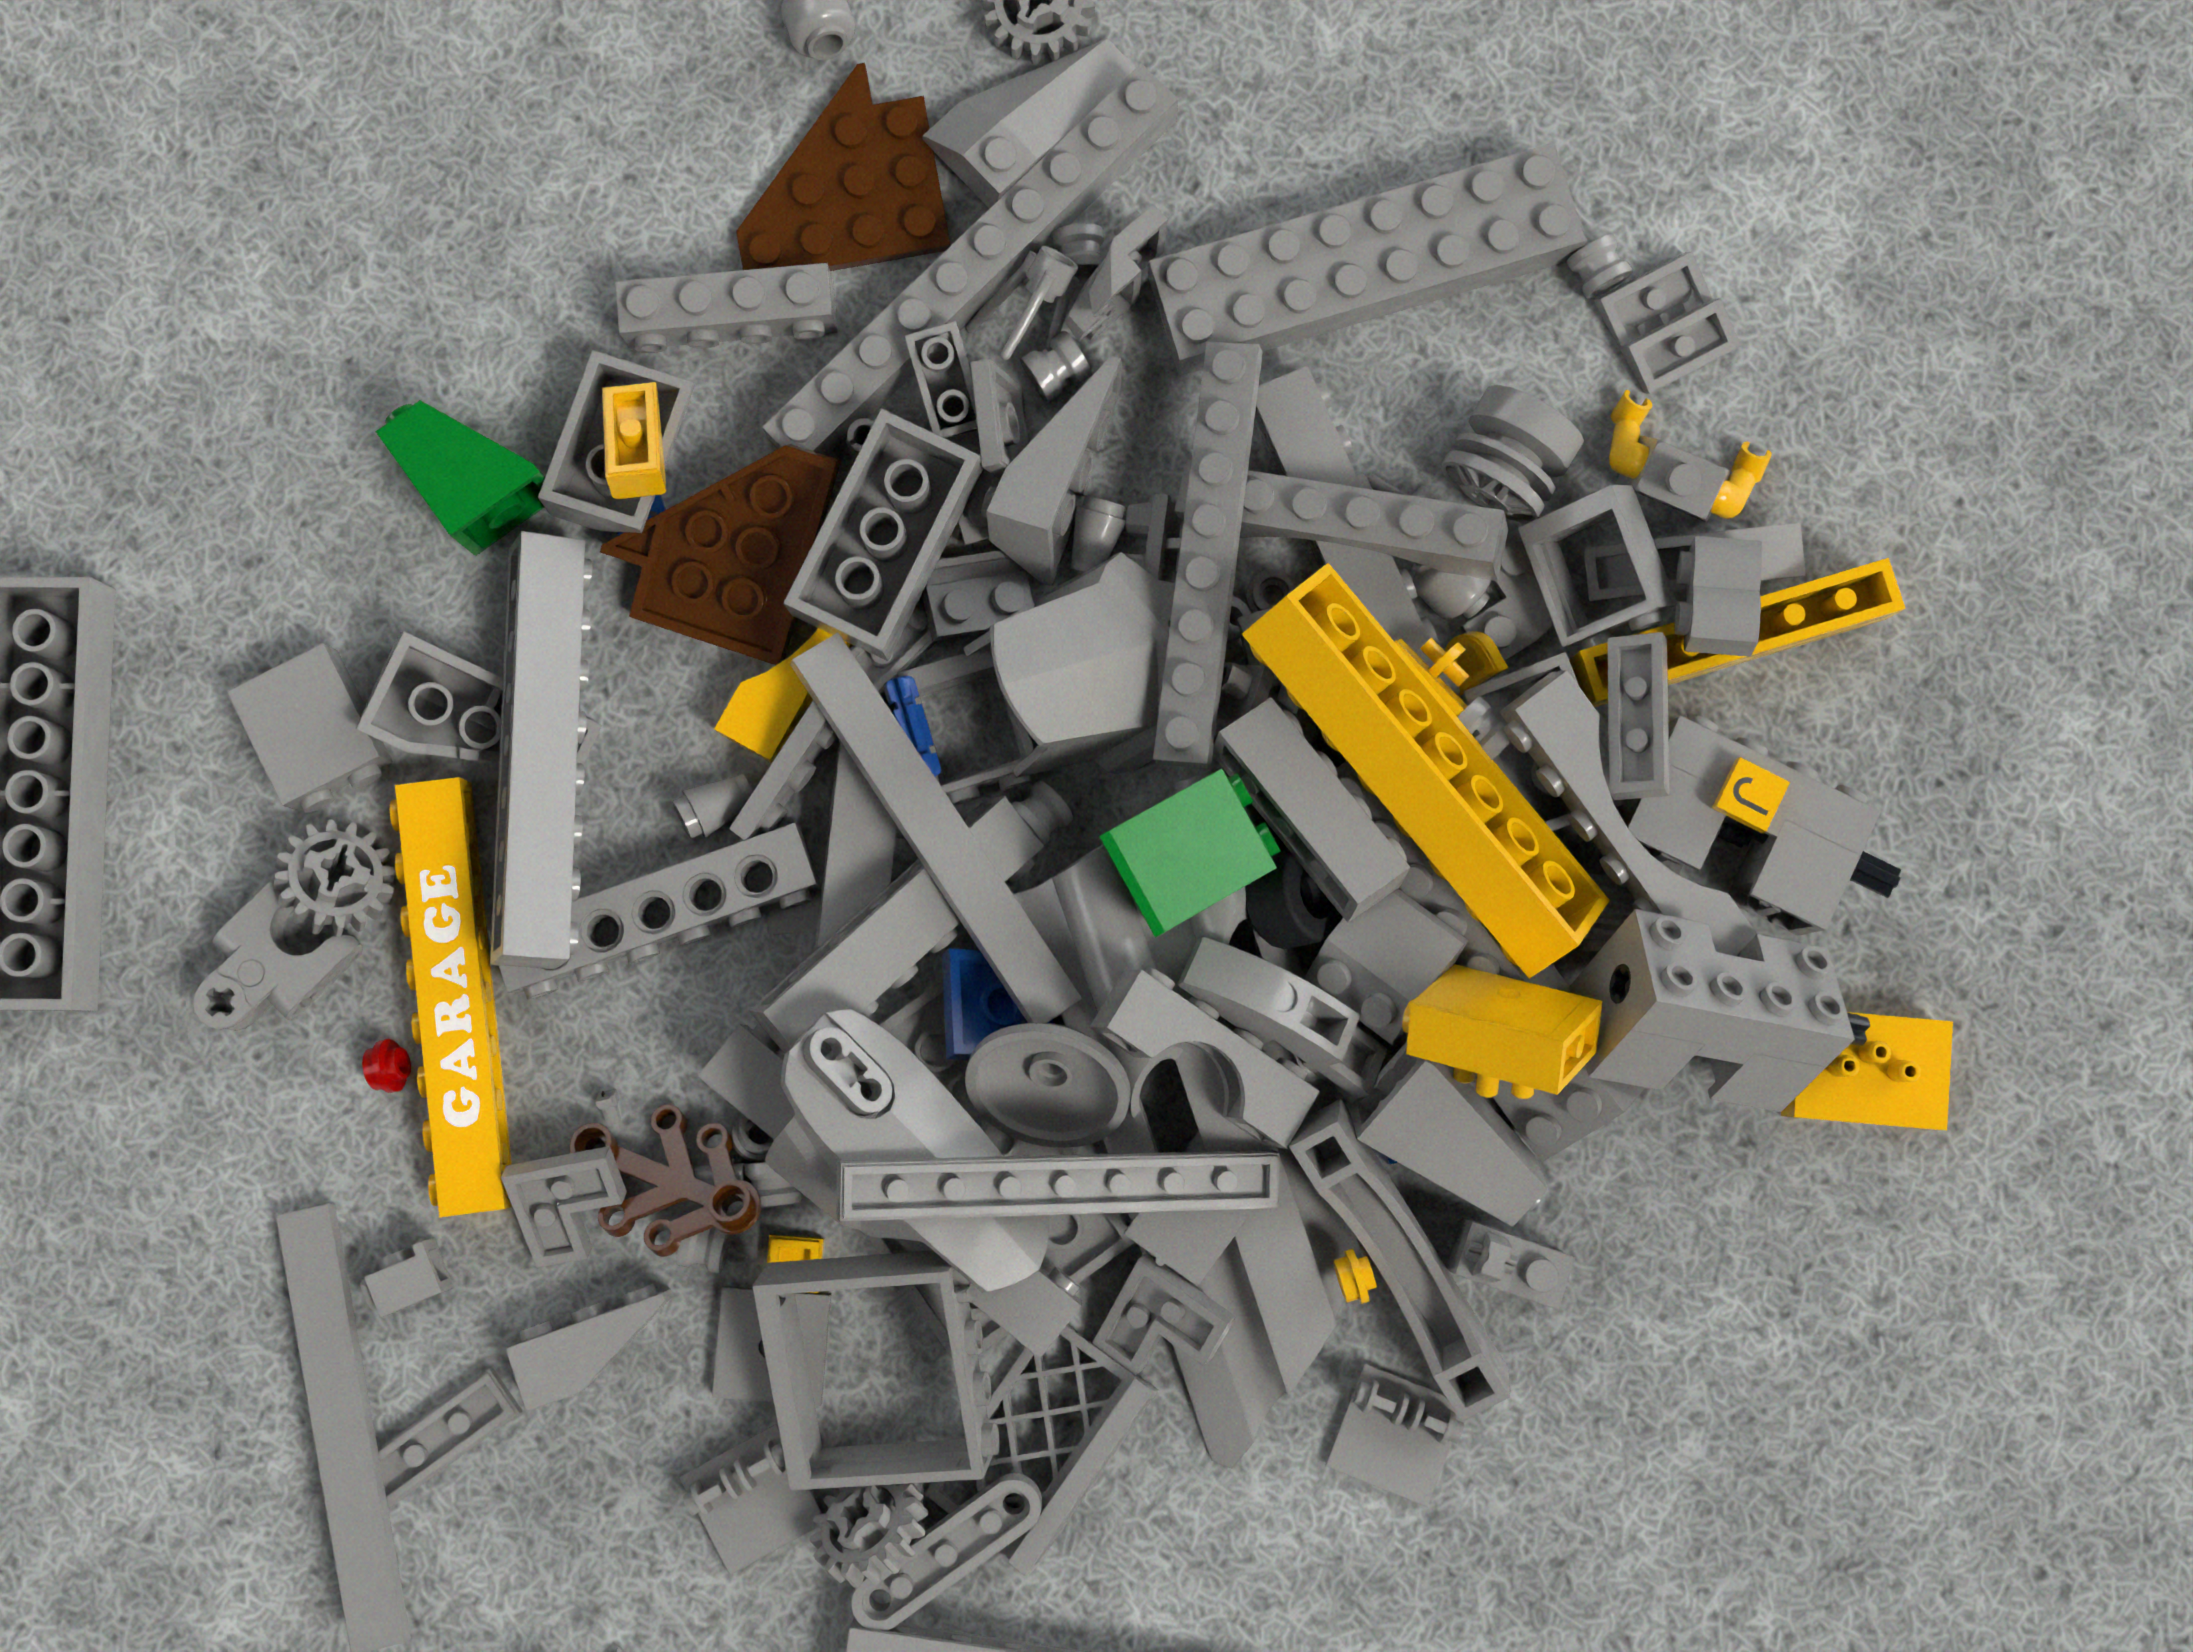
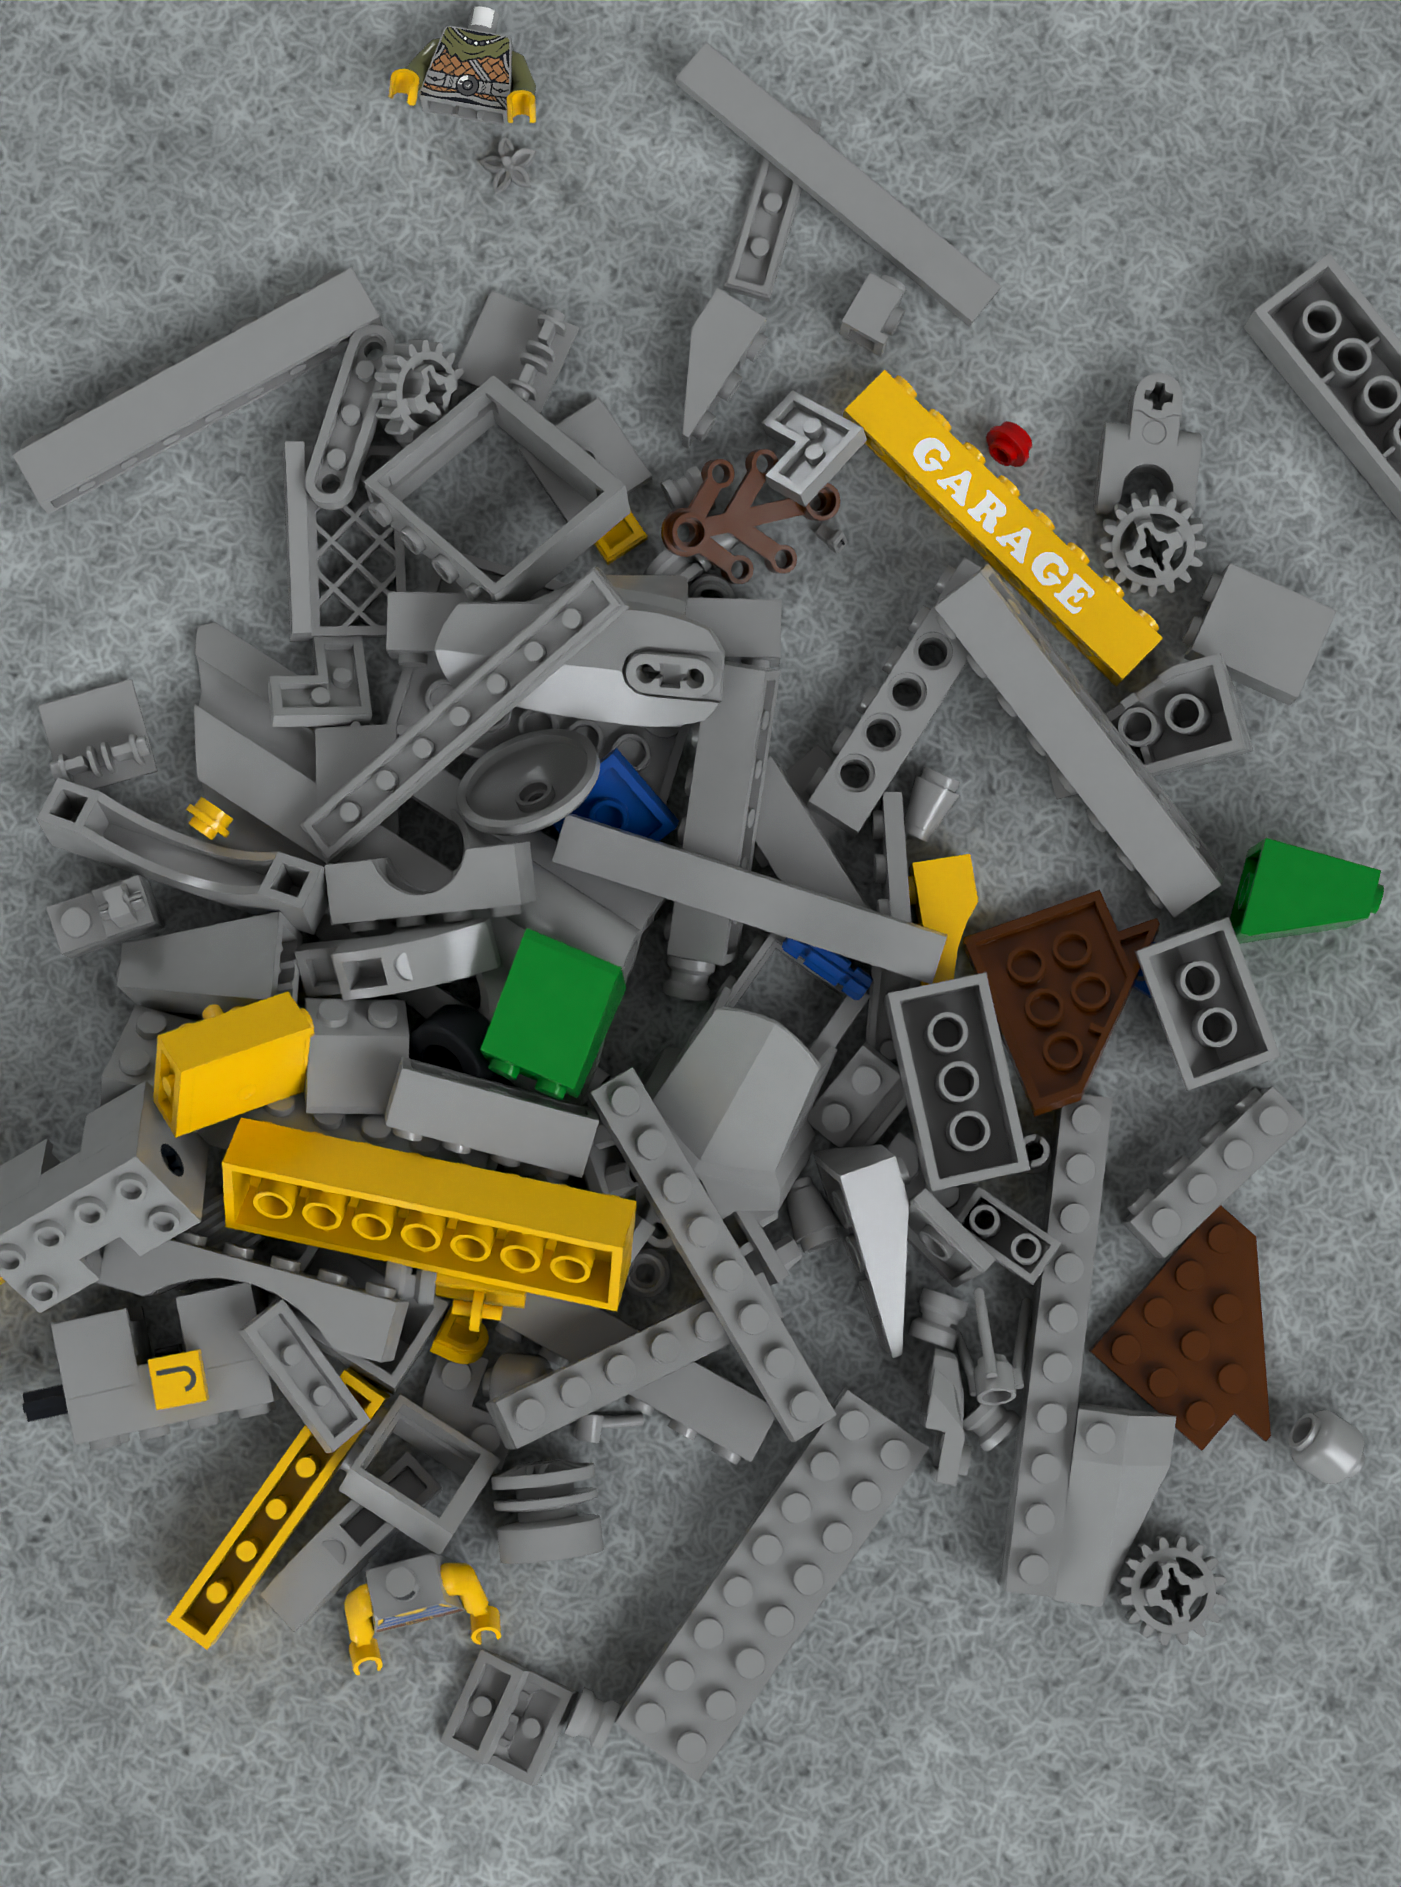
camera: 135 degrees right, 0 degrees up
(633, 441) = (1194, 1011): yellow slope -> none
(1720, 596) = (310, 1517): light grey brick -> none

